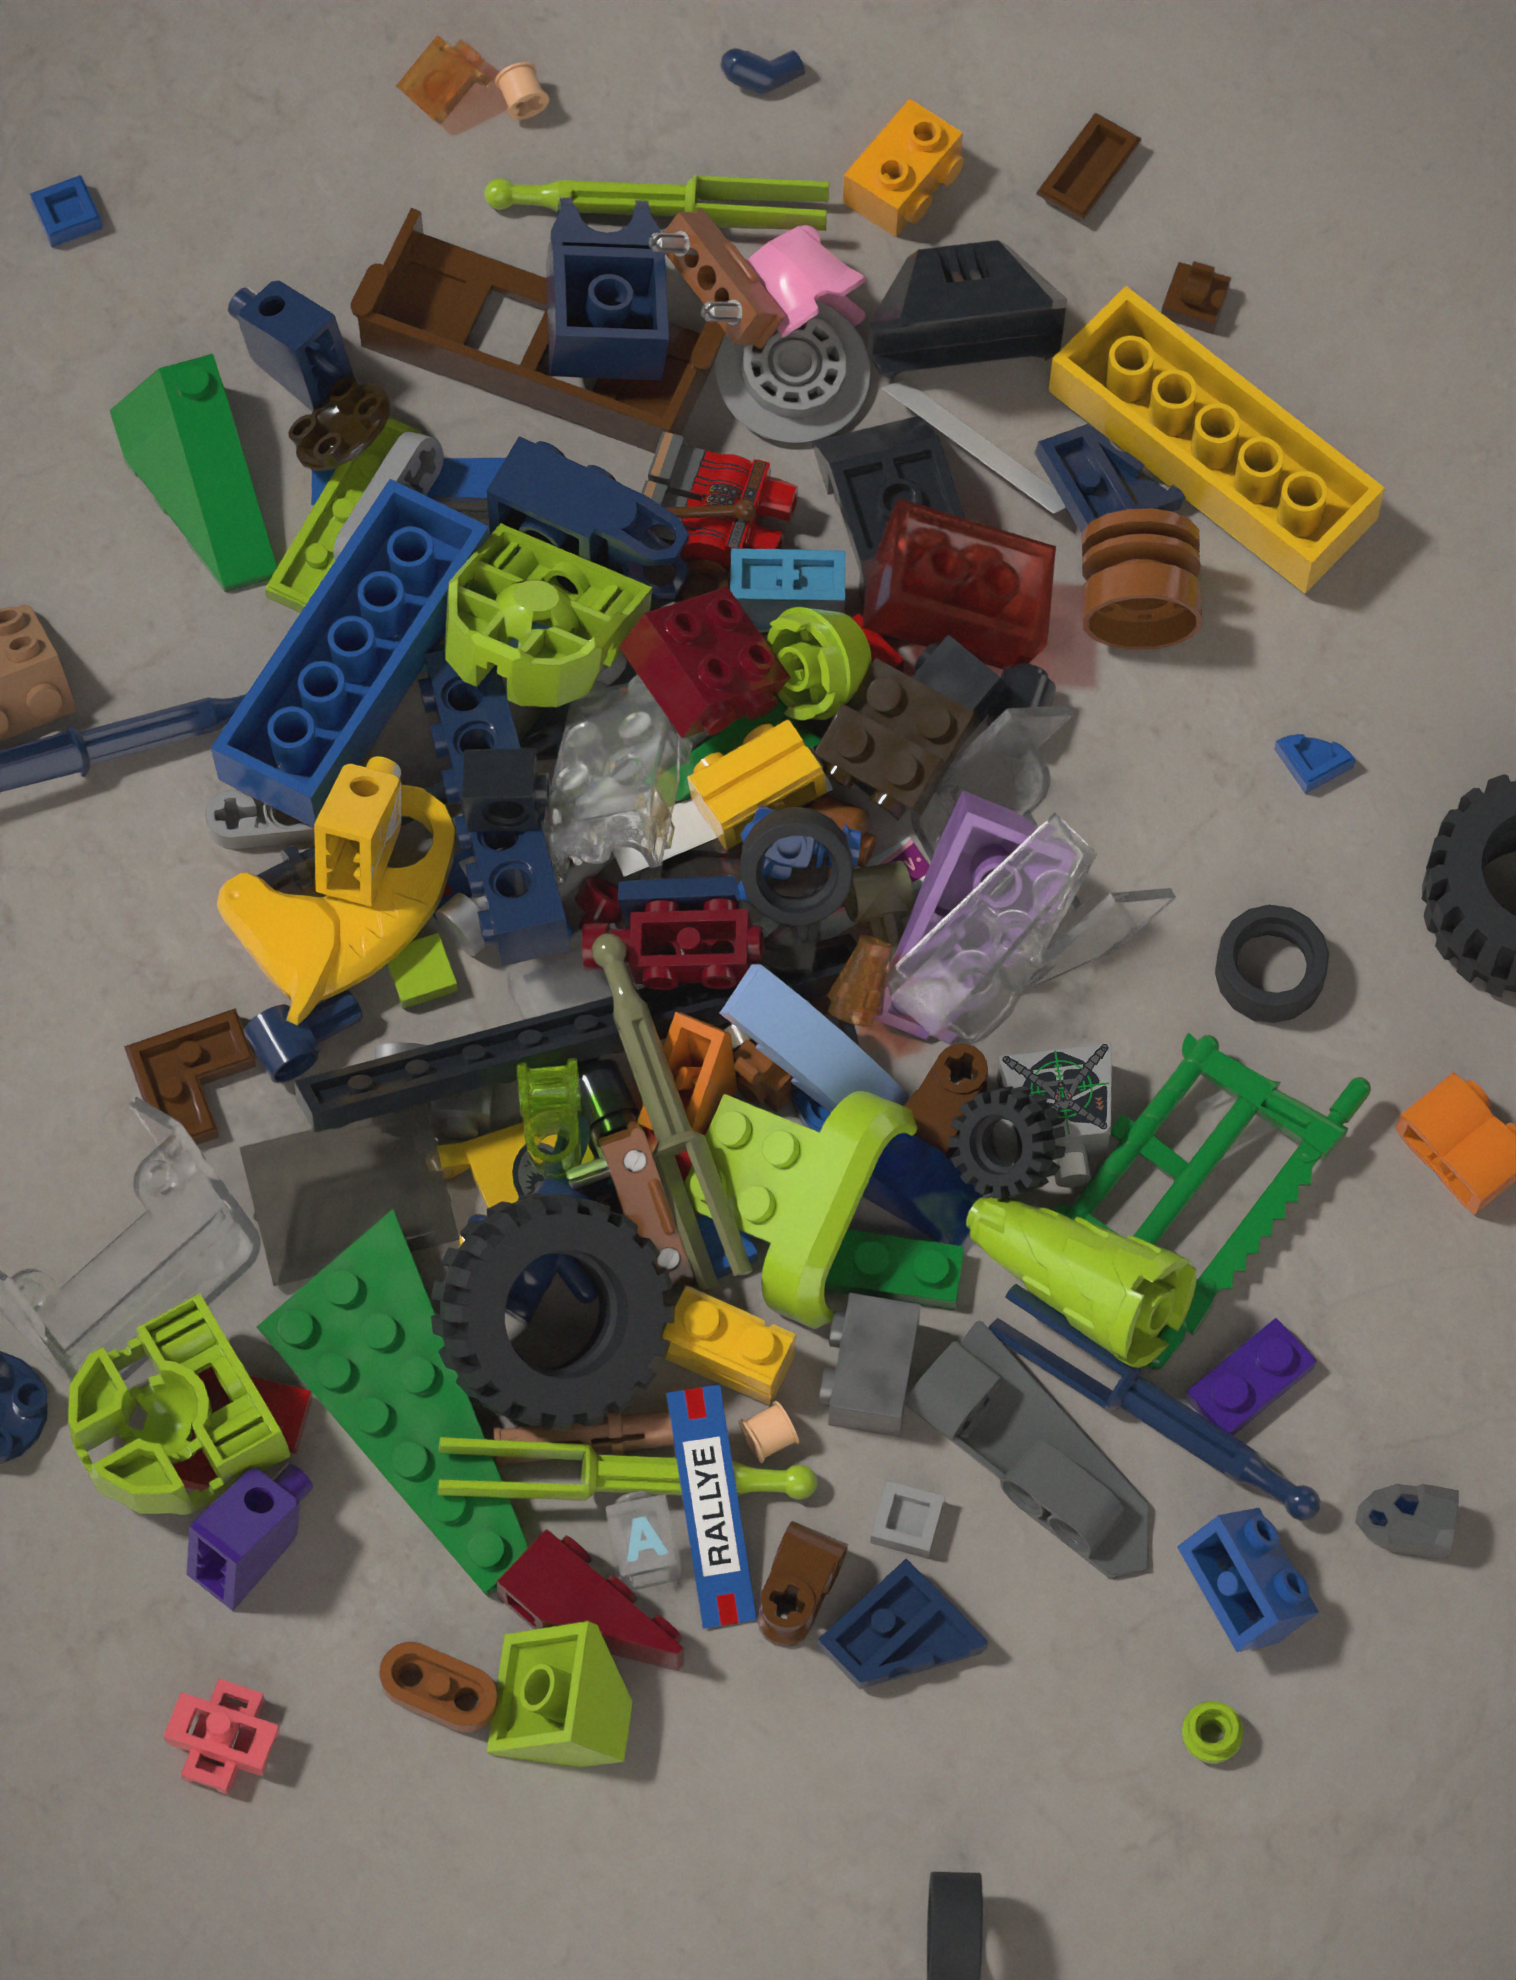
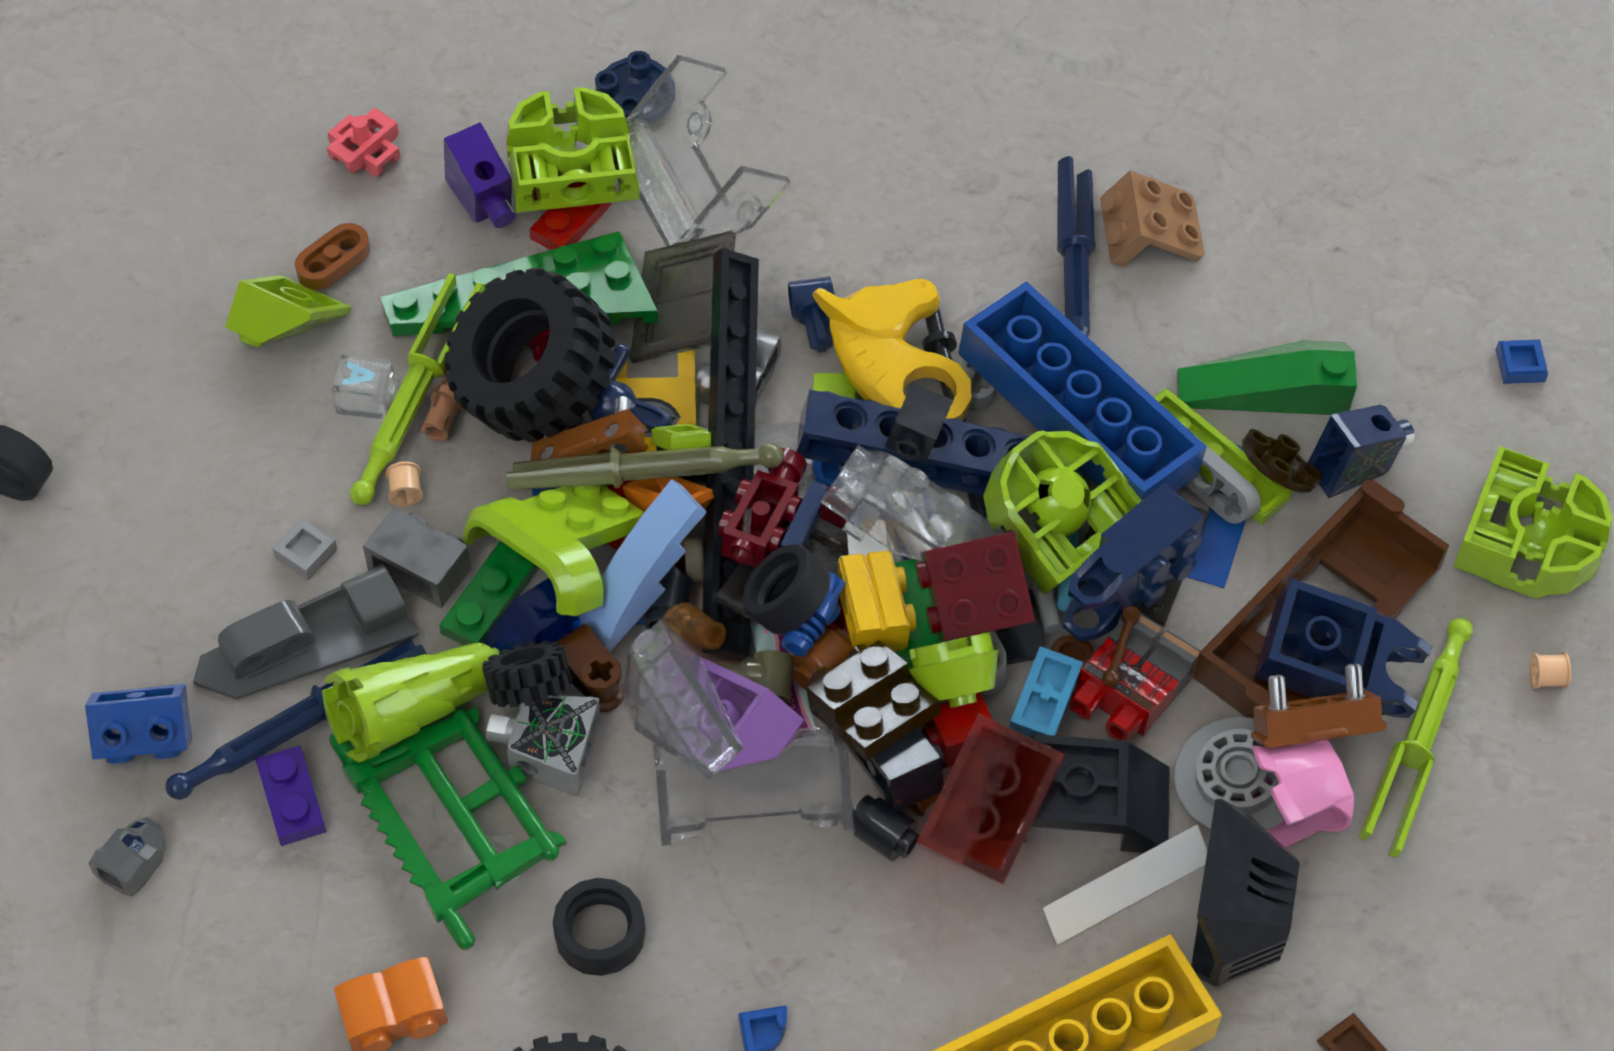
camera: 110 degrees right, 10 degrees down
(180, 1061) = (816, 239): reddish brown tile -> none
(319, 138) = (1563, 540): none -> lime connector
(363, 809) = (931, 344): yellow torso -> none
(443, 77) = (1578, 621): clear orange bracket -> none
(548, 1107) = (665, 392): clear neon green piece -> none
(558, 1587) = (349, 328): dark red slope -> none
(604, 1088) = (681, 437): none -> lime tile
(711, 1506) = (367, 428): sticker -> none
(729, 1345) = (470, 474): yellow brick -> none
(760, 74) = (1523, 845): dark blue arm -> none
(802, 1577) = (291, 463): reddish brown piece -> none
(899, 1631) = (228, 513): dark blue wing -> none
(904, 168) = (1401, 914): light orange brick -> none
(1099, 478) = (1060, 954): dark blue wing -> none
(1141, 579) = (953, 938): dark orange wheel -> none
(1215, 1714) = (53, 664): lime plate -> none

